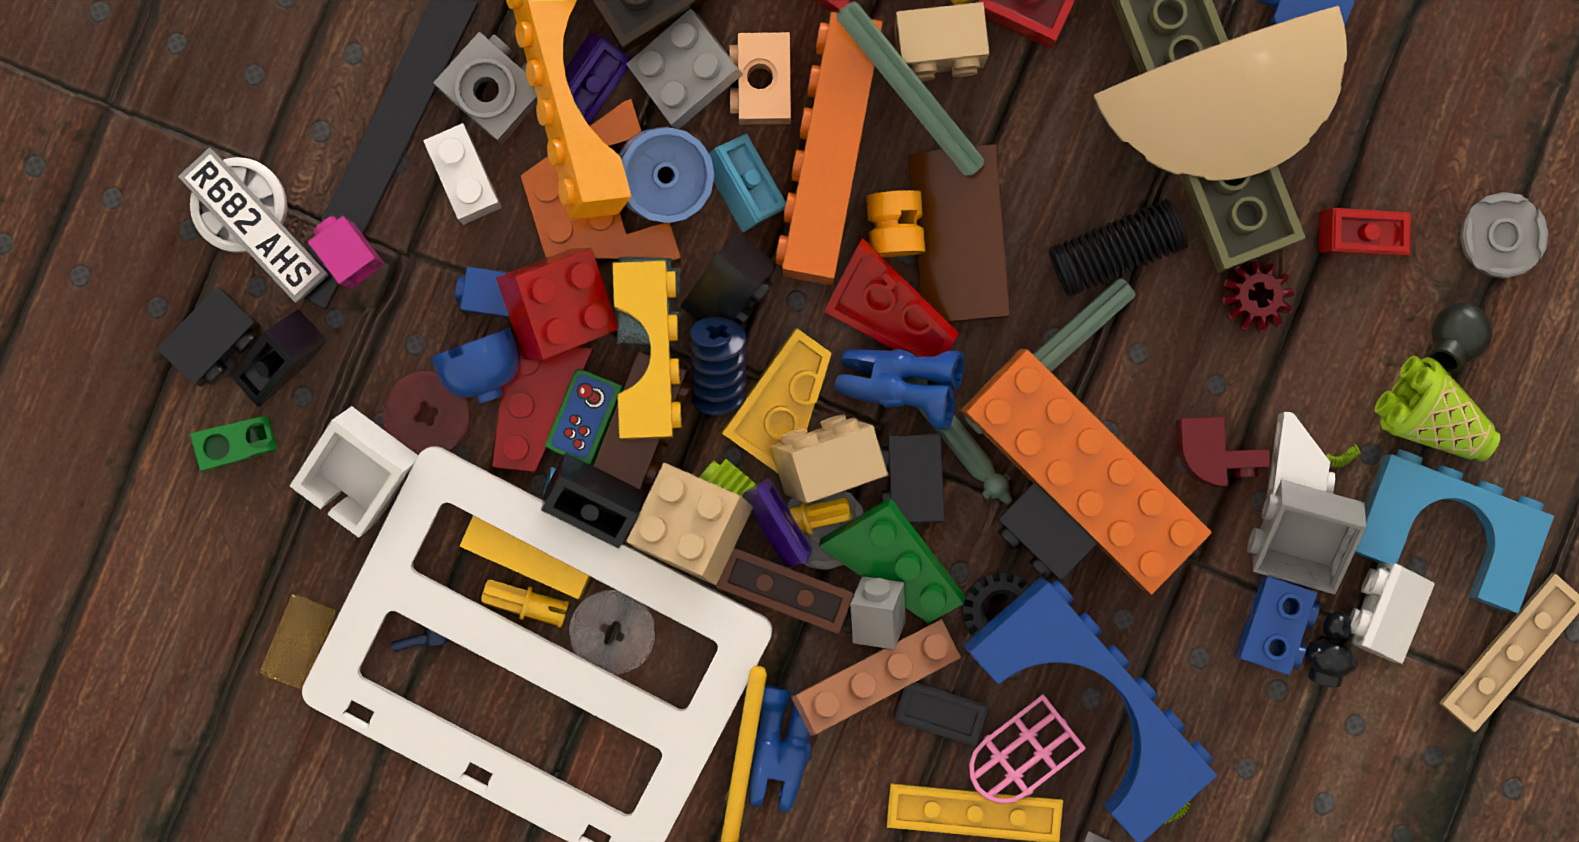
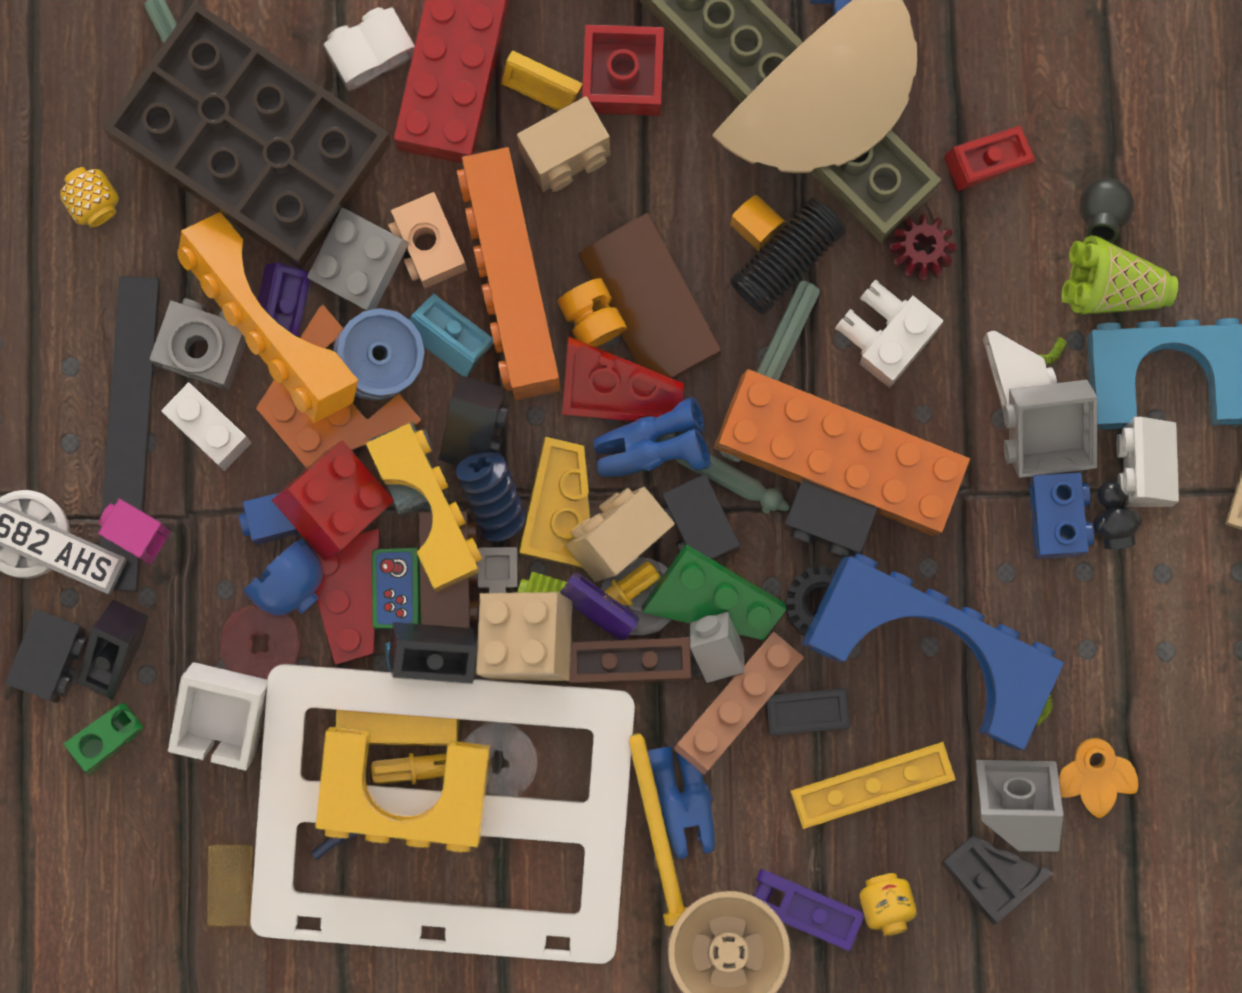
camera: 20 degrees left, 5 degrees down
(446, 620) = (349, 807): none -> yellow arch
(693, 442) = (498, 569): none -> light grey plate
(910, 88) = (555, 193): sand green axle -> none
(1026, 734) = (907, 710): bright pink window -> none
(1102, 199) = (756, 222): none -> light orange brick
(1180, 388) = (892, 350): none -> white brick
(1204, 453) = (937, 399): dark red brick -> none
(1503, 235) = (1106, 111): light grey tile -> none

